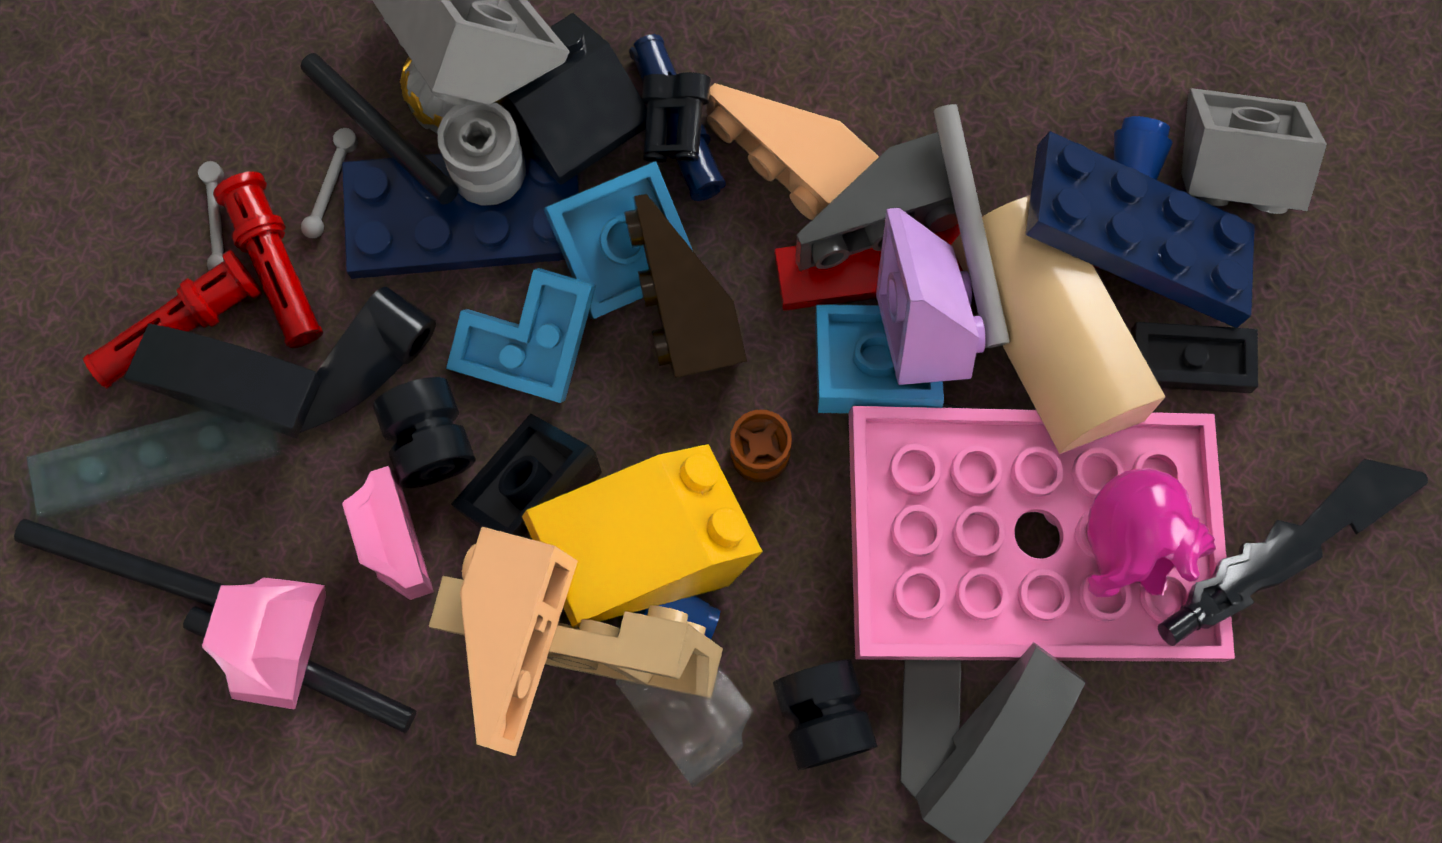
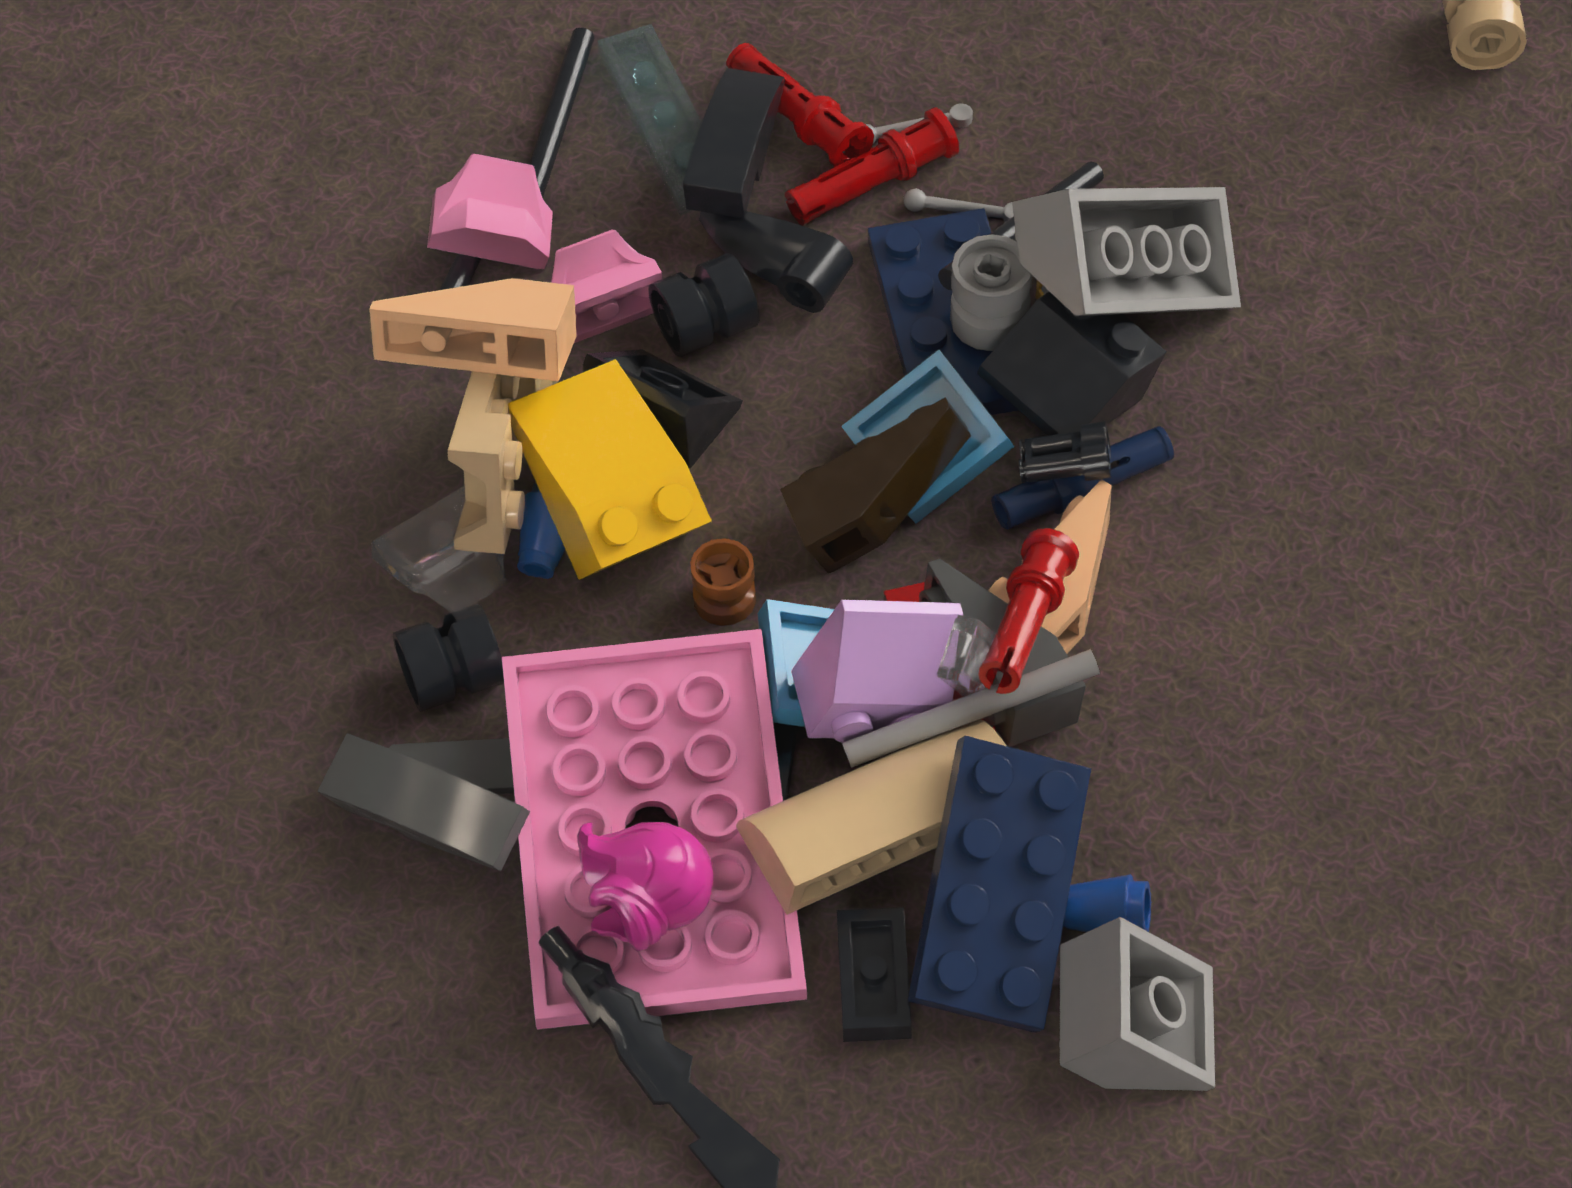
camera: 85 degrees right, 20 degrees down
(539, 350) = (806, 381): dark azure plate -> none
(857, 152) = (1033, 593): none -> red pin
(932, 214) = (965, 654): none -> clear tile

